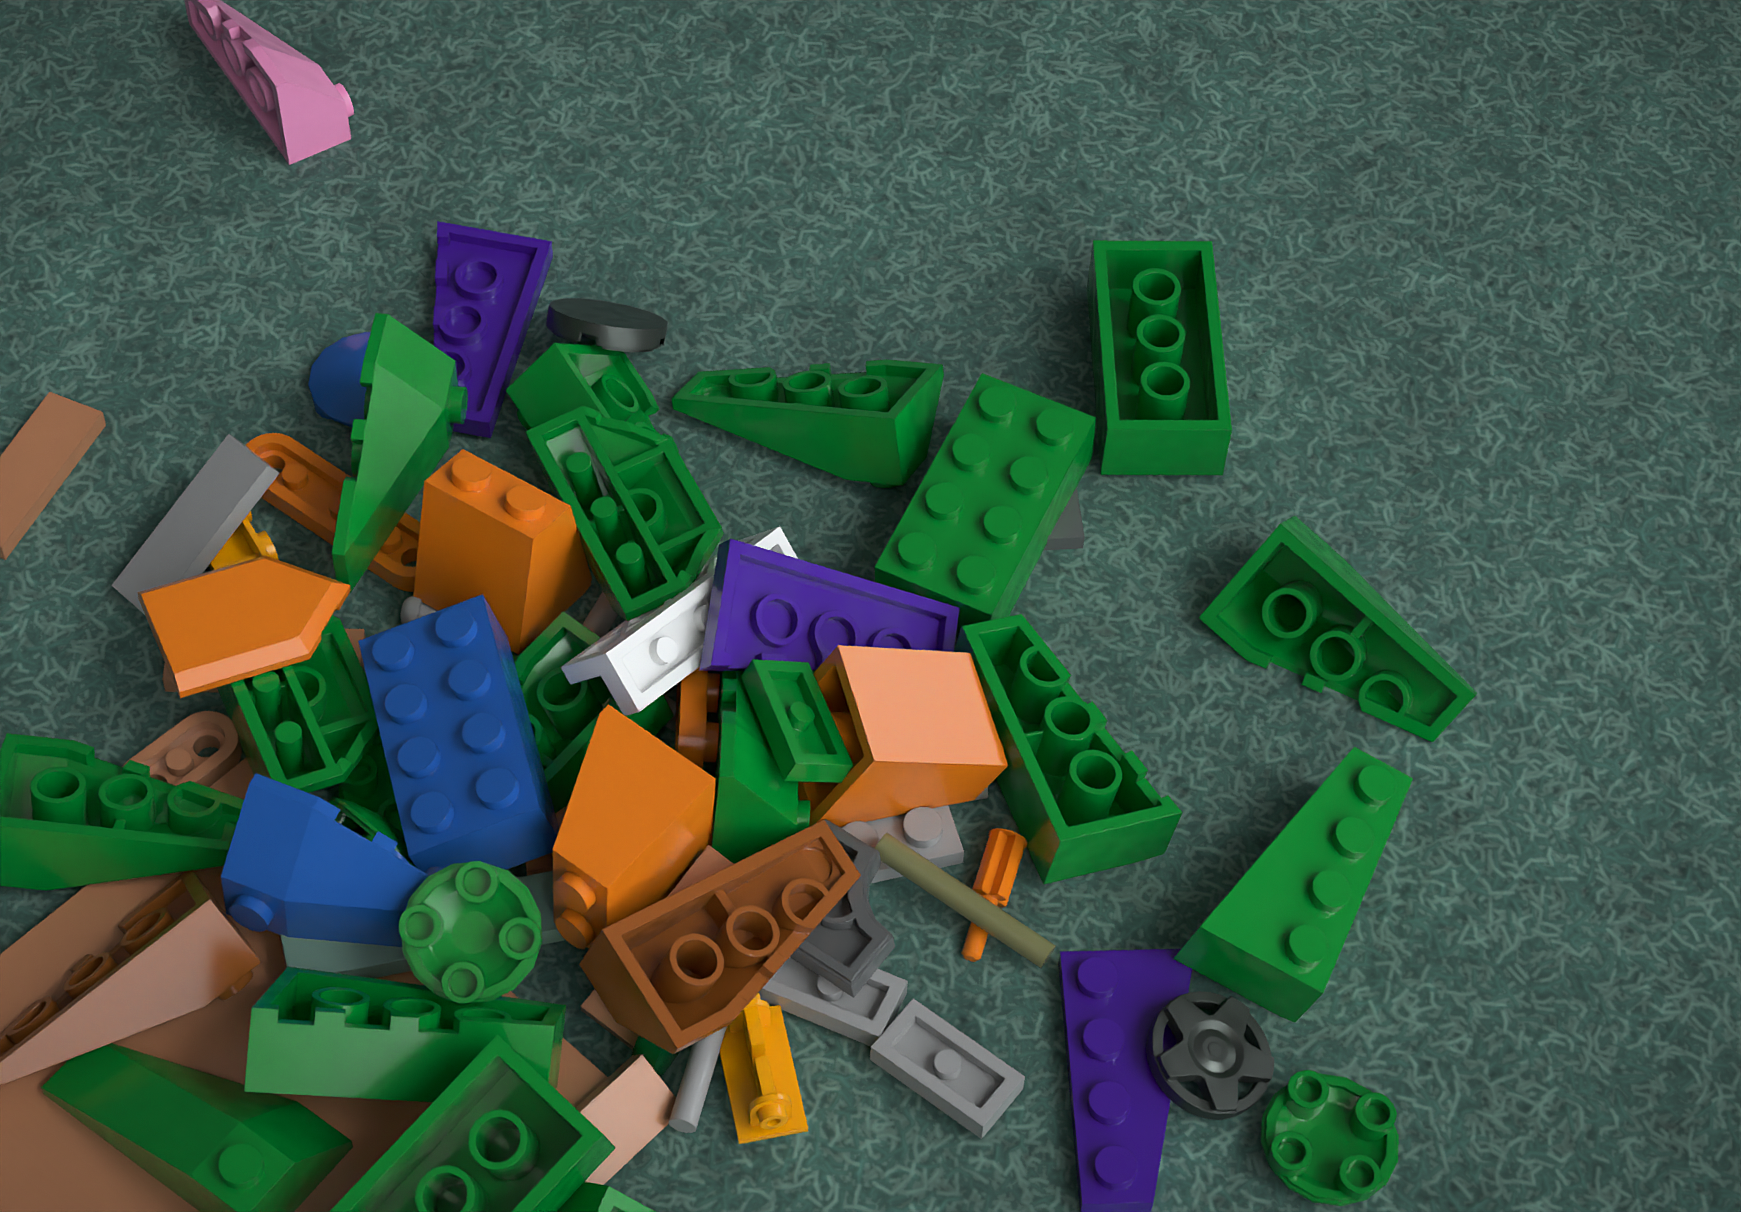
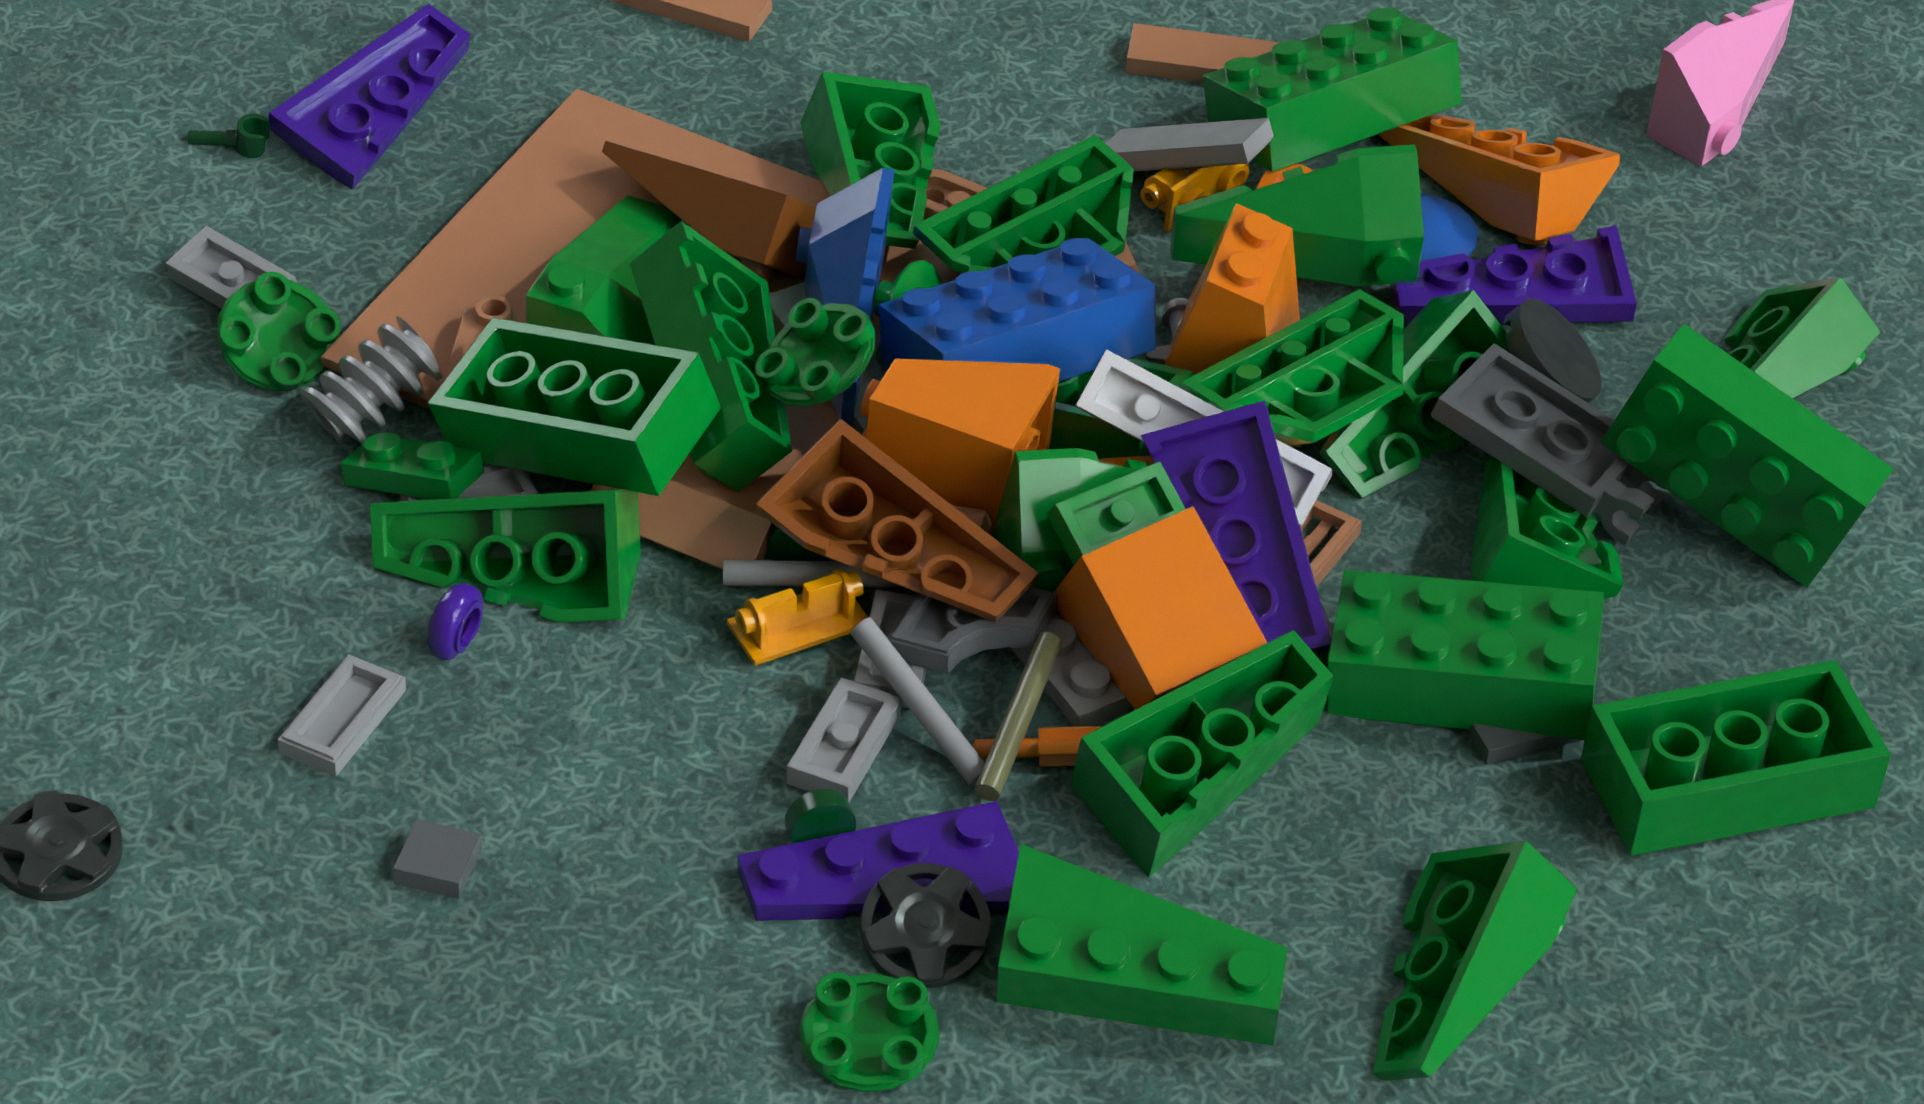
camera: 75 degrees right, 10 degrees down
(156, 375) = (1338, 85): none -> green brick
(239, 621) = (1072, 162): orange tile -> none
(323, 285) = (1507, 181): none -> orange wedge
(658, 167) = (1803, 334): none -> wedge
(728, 357) = (1547, 439): none -> dark grey tile
(830, 216) = (1745, 455): none -> green brick
(925, 982) = (918, 700): none -> light grey bar
(1056, 1116) = (819, 815): none -> dark green tile

